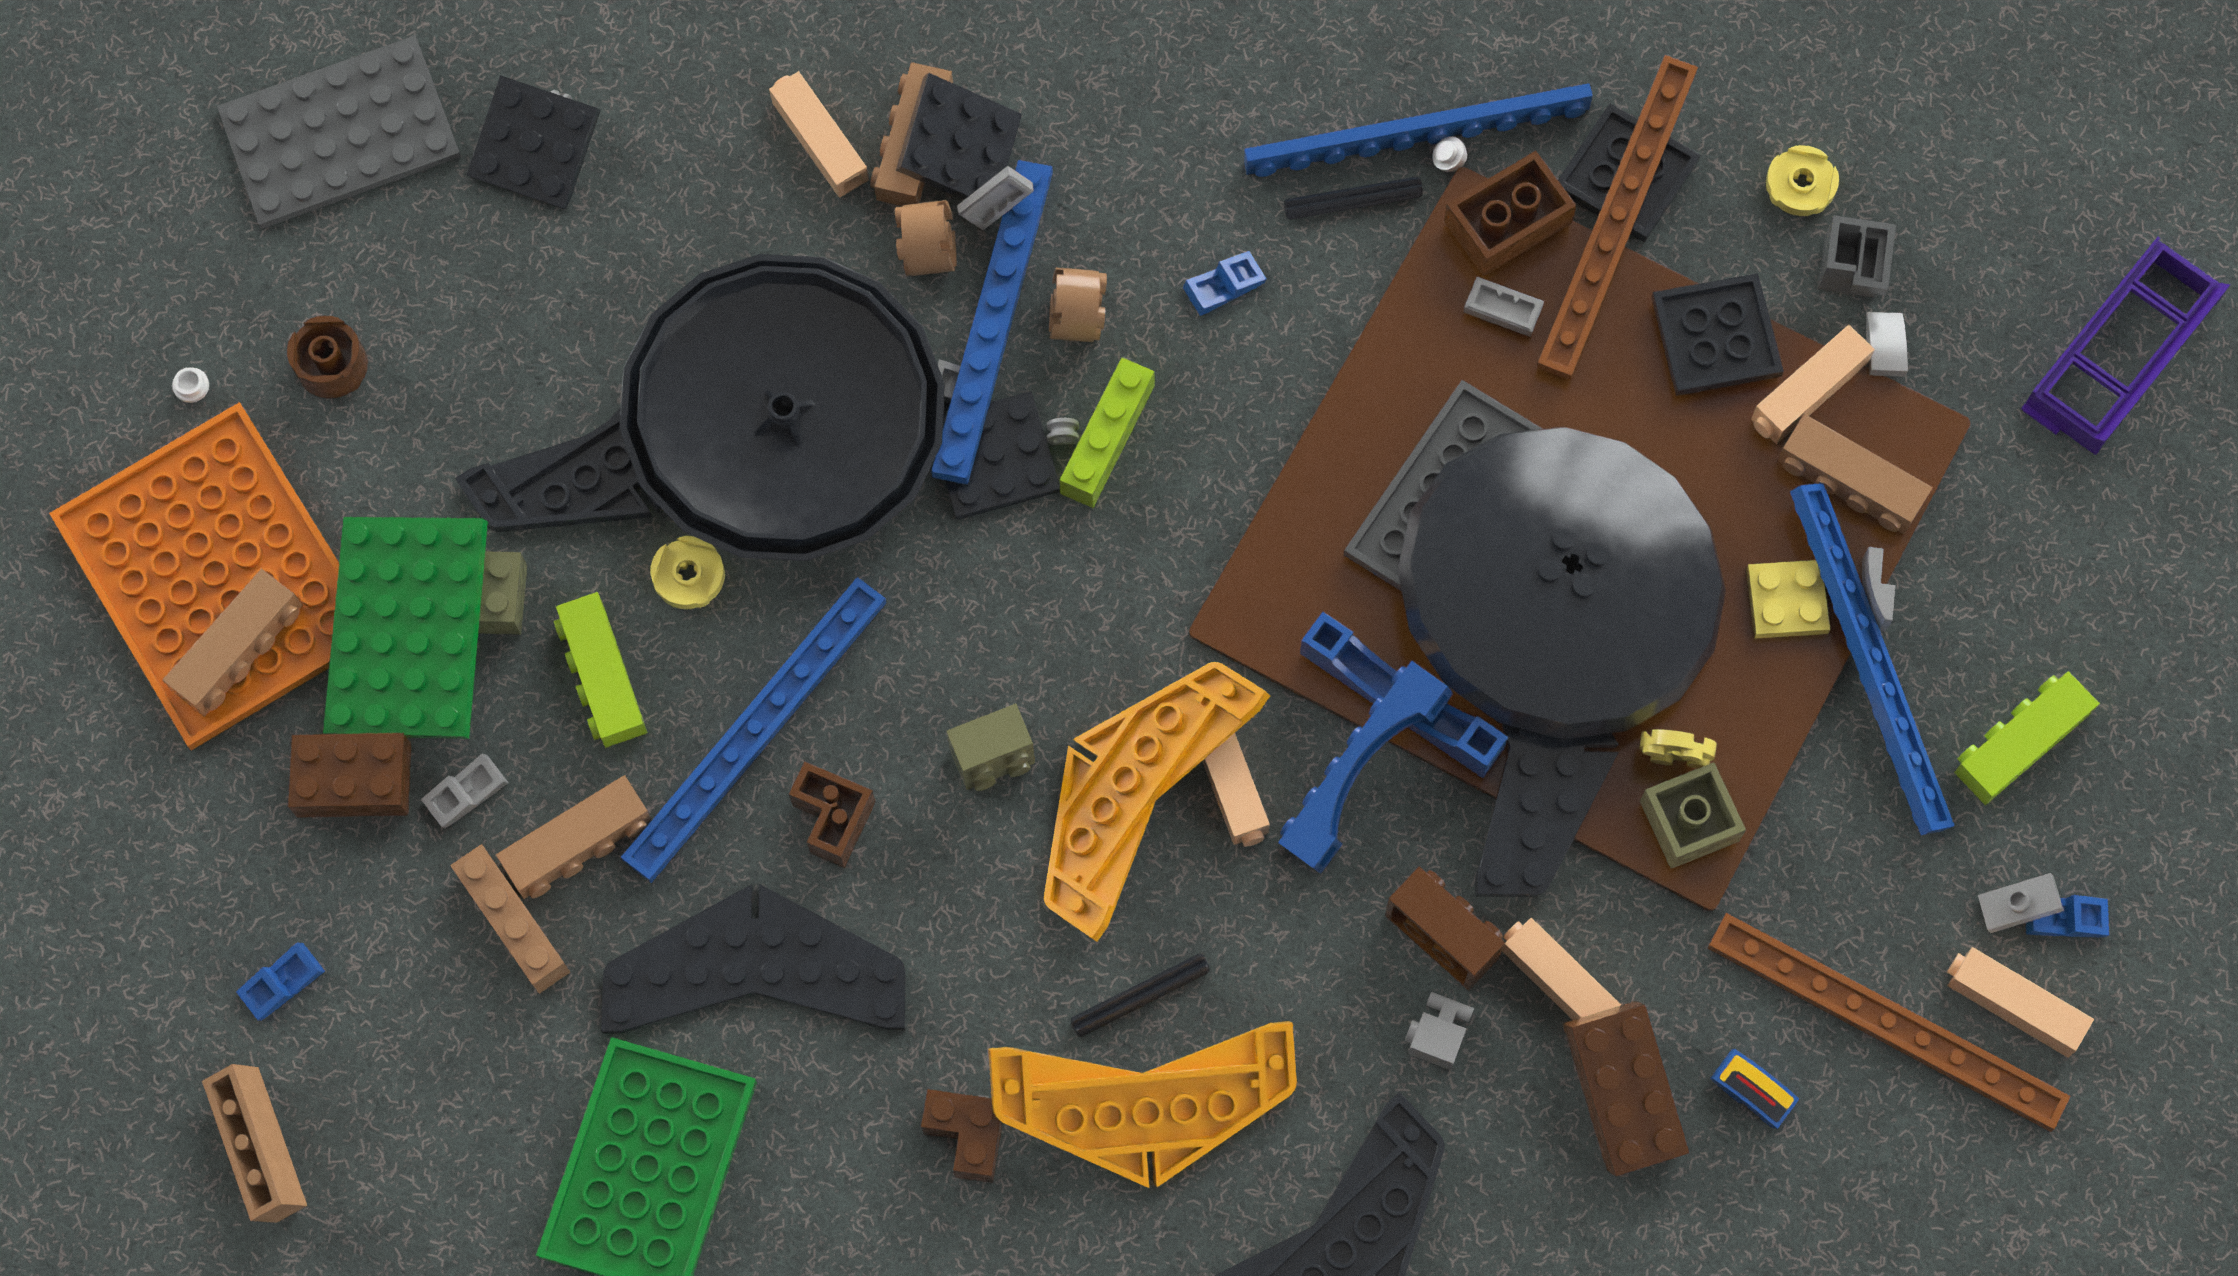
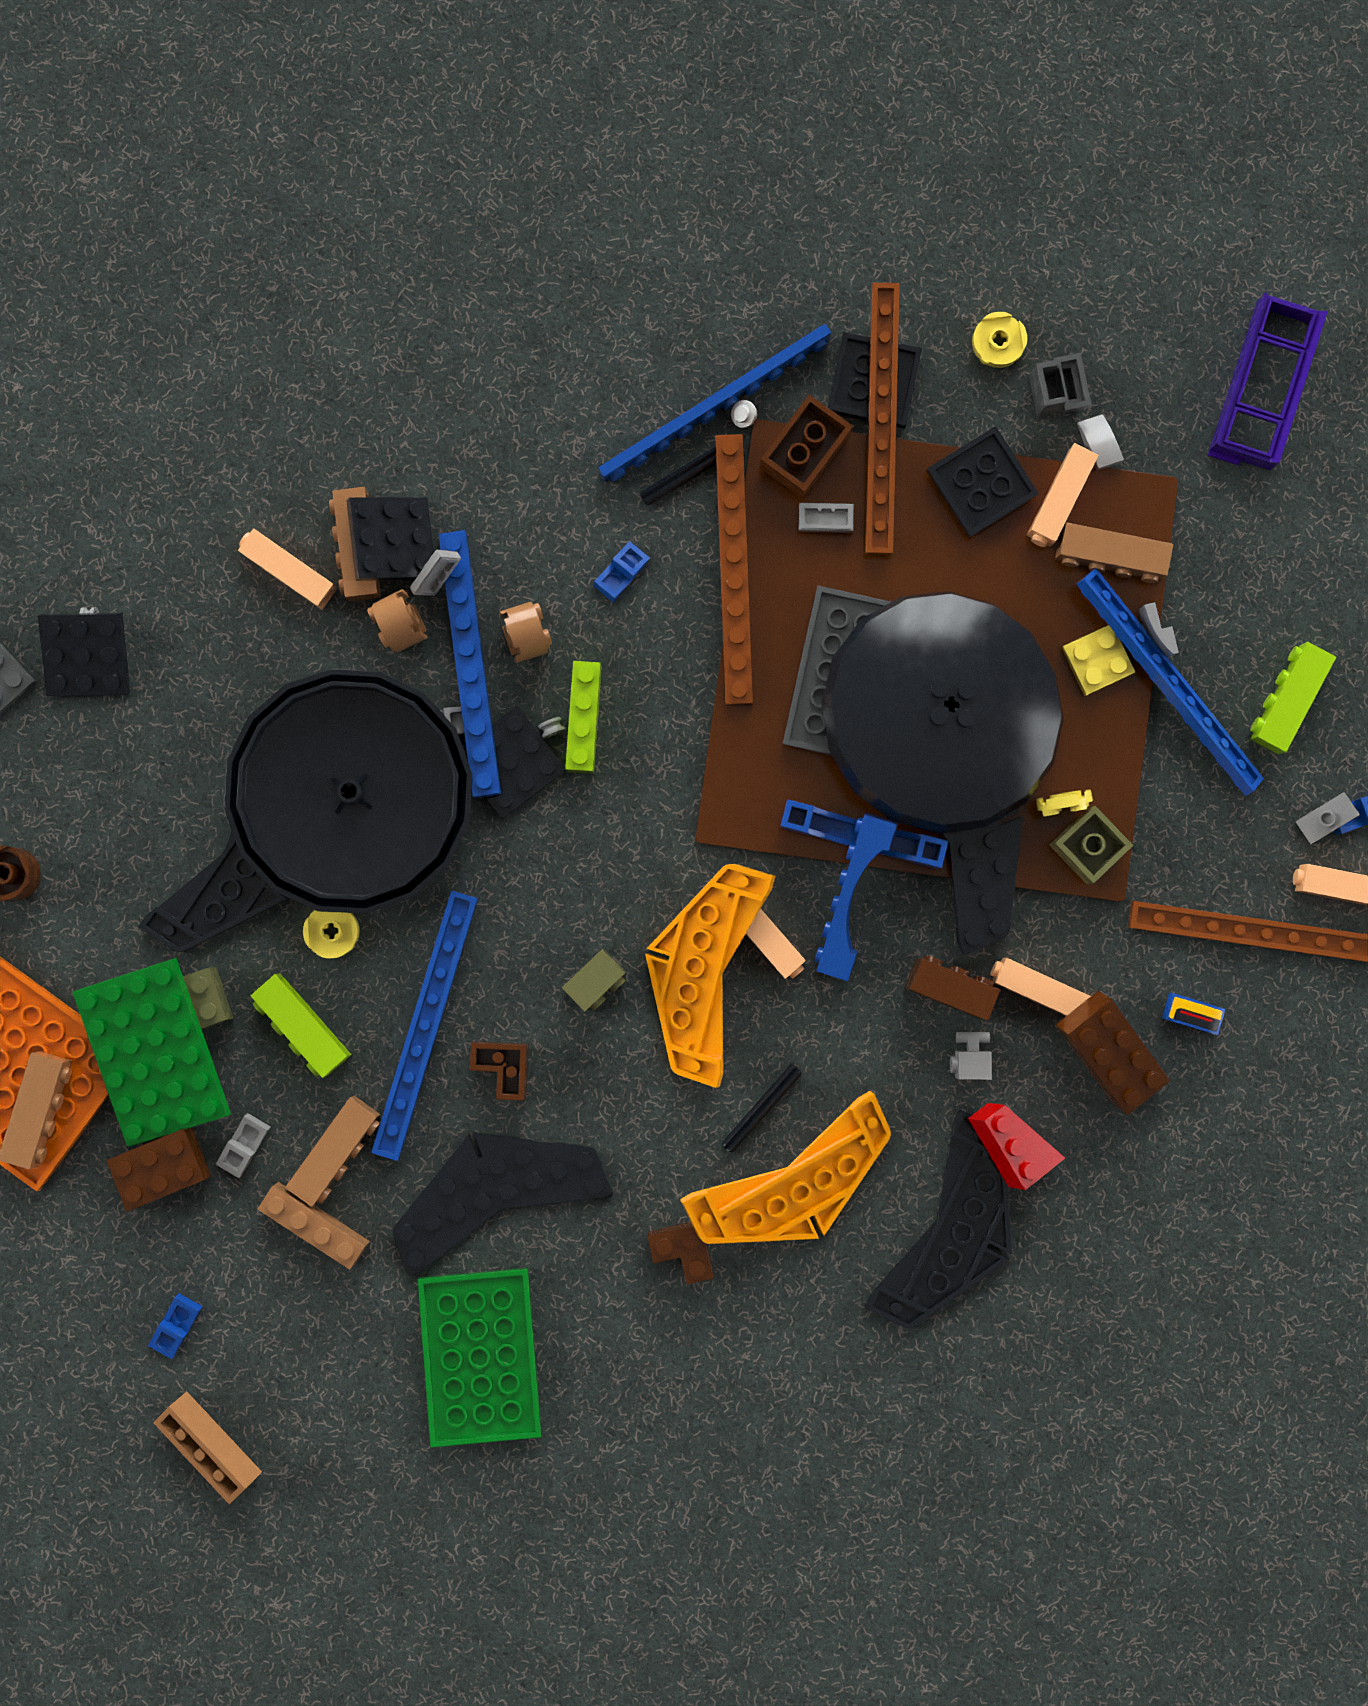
camera: 25 degrees left, 15 degrees up
(1364, 329) = (734, 570): none -> dark orange plate
(1450, 1156) = (1014, 1146): none -> wedge

